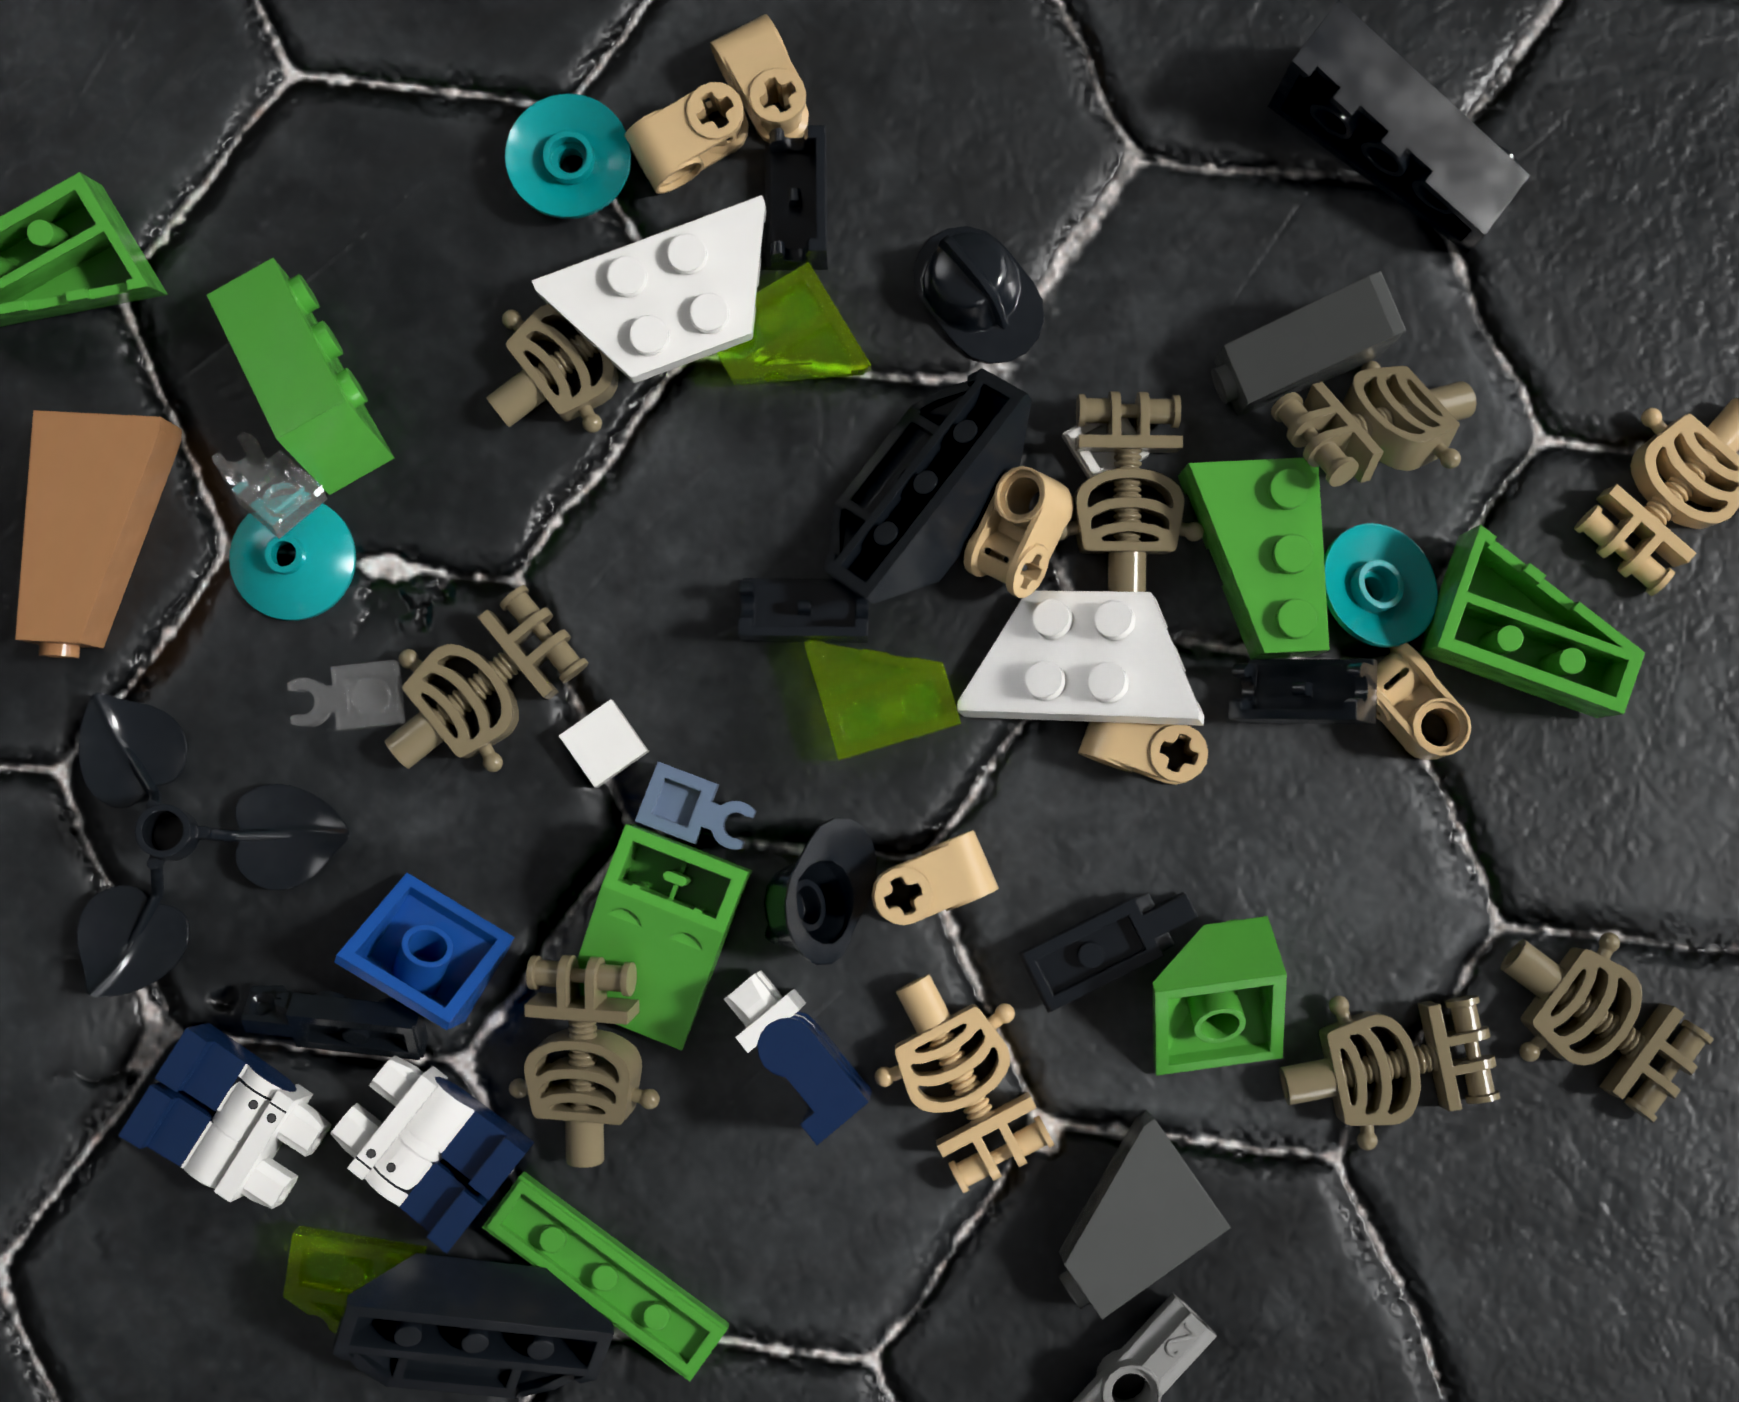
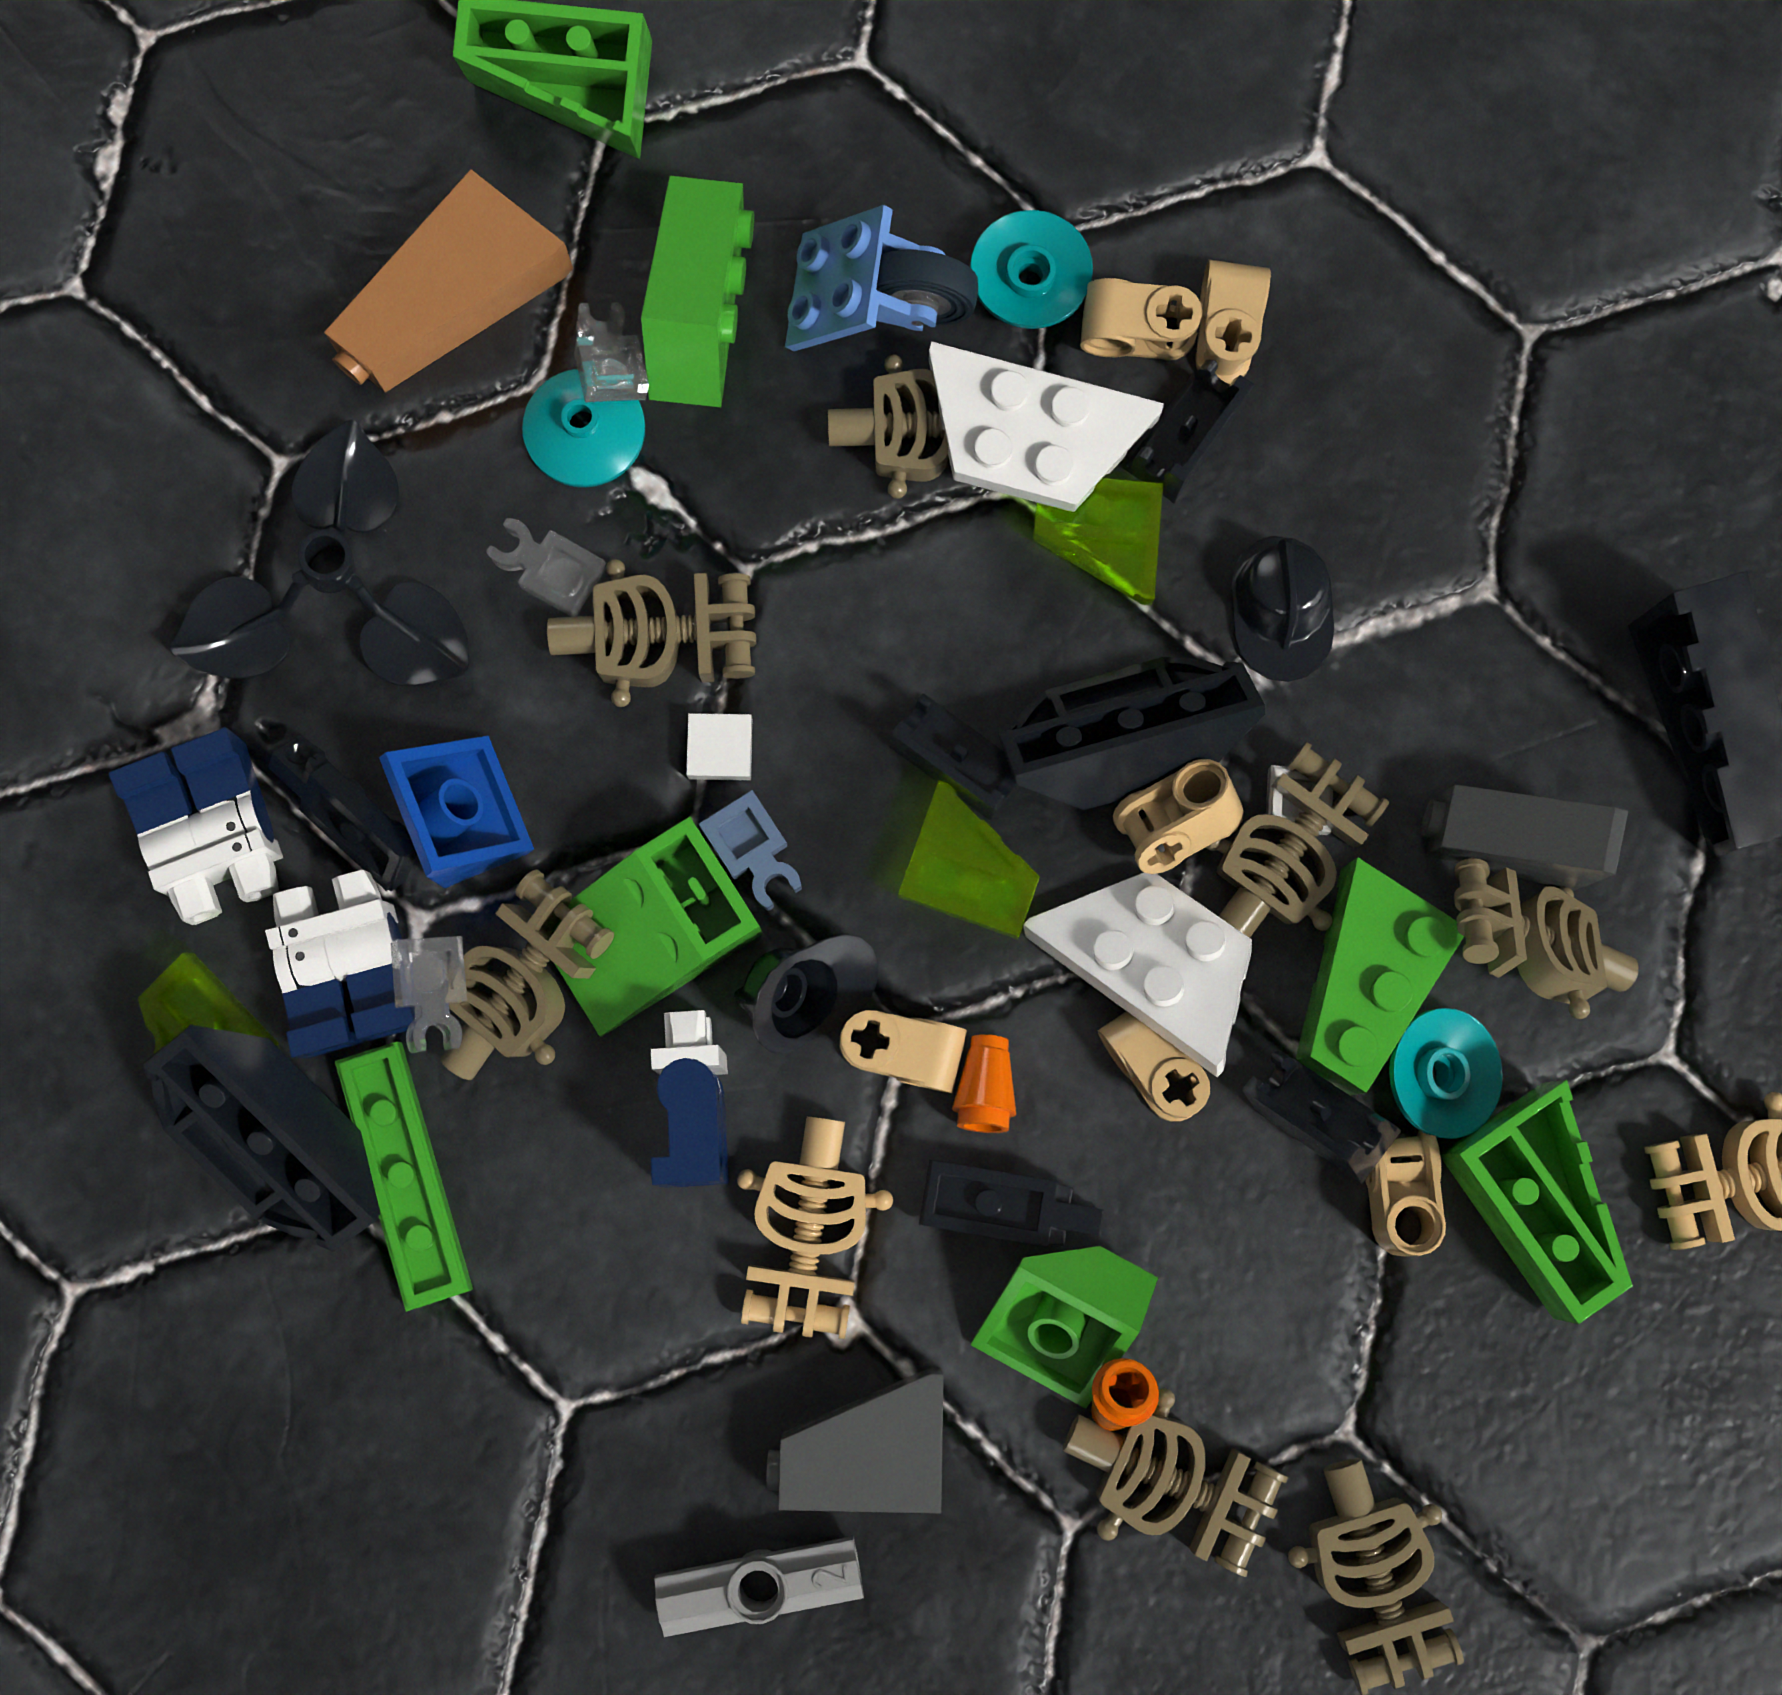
camera: 30 degrees right, 5 degrees down
(431, 264) = (864, 275): none -> medium blue plate
(511, 1109) = (429, 978): none -> clear plate
(1021, 862) = (986, 1087): none -> orange cone
(1309, 1017) = (1131, 1386): none -> orange cone

